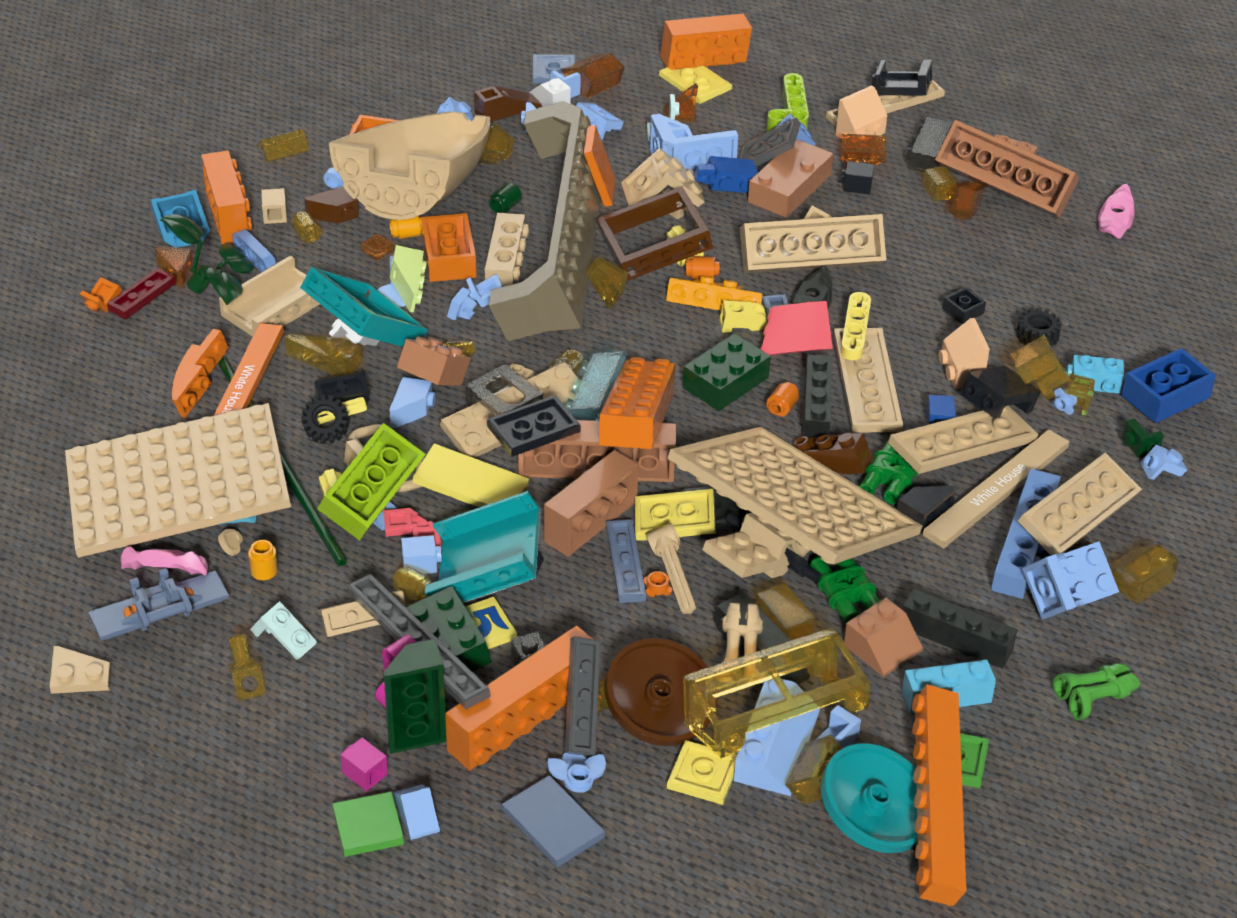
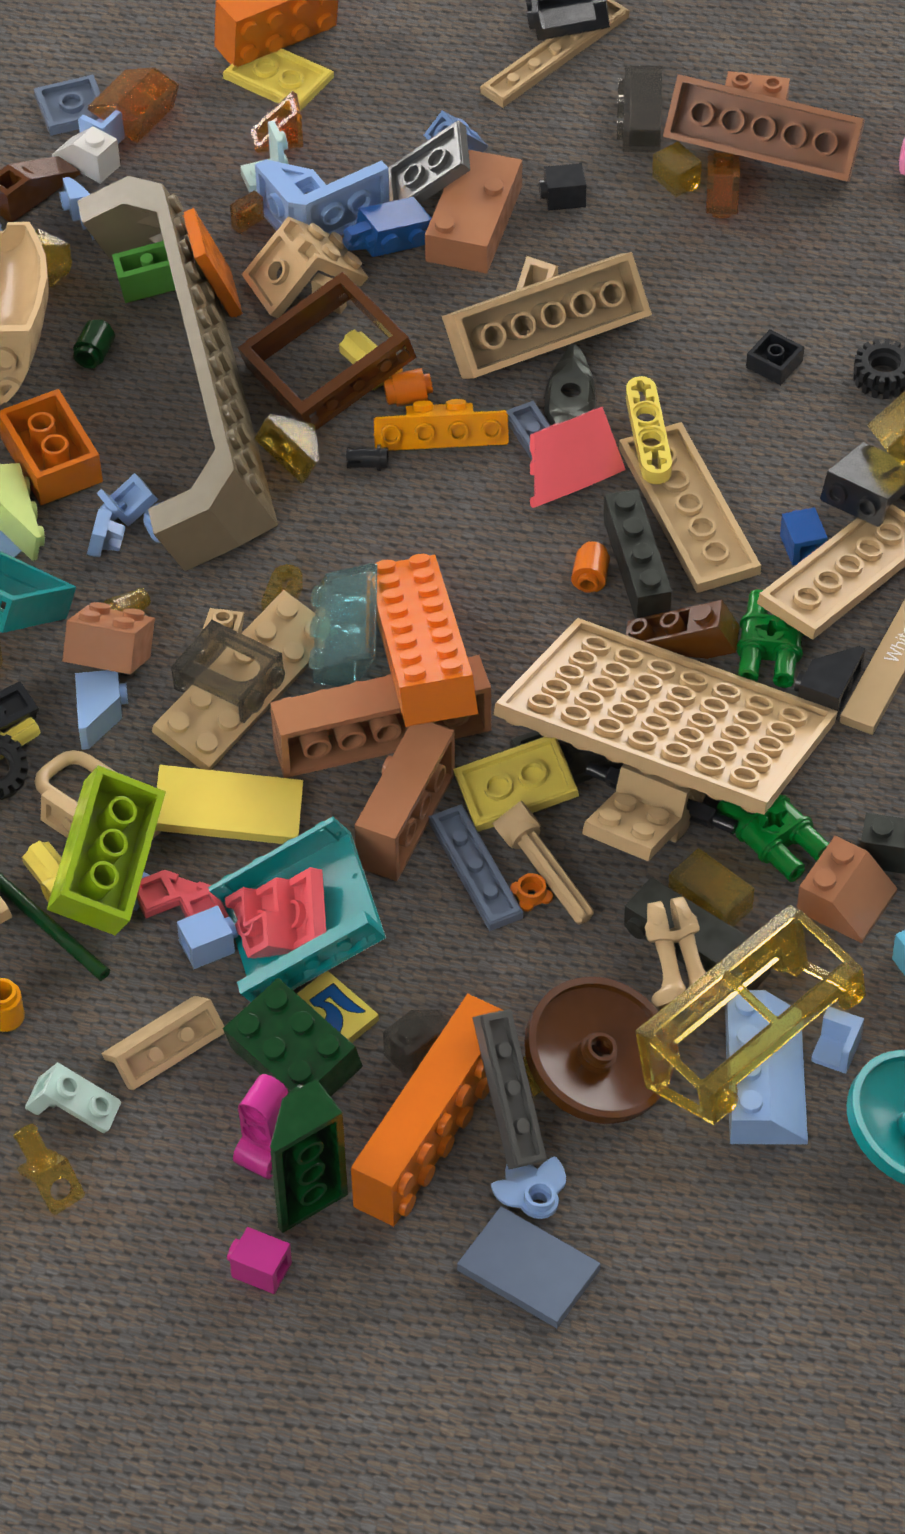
camera: 15 degrees left, 10 degrees up
(368, 824) = (297, 1340): bright green tile -> none
(399, 621) = (249, 1059): dark grey tile -> none
(411, 582) = (214, 981): clear yellow brick -> none
(417, 811) = (352, 1302): light blue slope -> none
(472, 548) = (280, 913): none -> coral slope
(507, 248) = (128, 427): tan brick -> none
(533, 425) = (294, 710): black tile -> none
(549, 163) = (143, 271): none -> bright green brick
(601, 118) = (174, 175): light blue bracket -> none
(639, 147) = (247, 211): none -> clear orange plate
(658, 302) = (367, 457): none -> black pin
(702, 773) = (688, 1146): light yellow tile -> none
(726, 372) = (502, 546): dark green brick -> none
(742, 315) = (489, 451): light yellow leg -> none
(793, 100) = (433, 86): lime beam -> none
(808, 769) = (825, 1102): clear yellow brick -> none
(861, 114) = (536, 88): light nougat slope -> none
(863, 148) = (553, 136): clear orange bracket -> none
(964, 352) = (806, 438): light nougat slope -> none

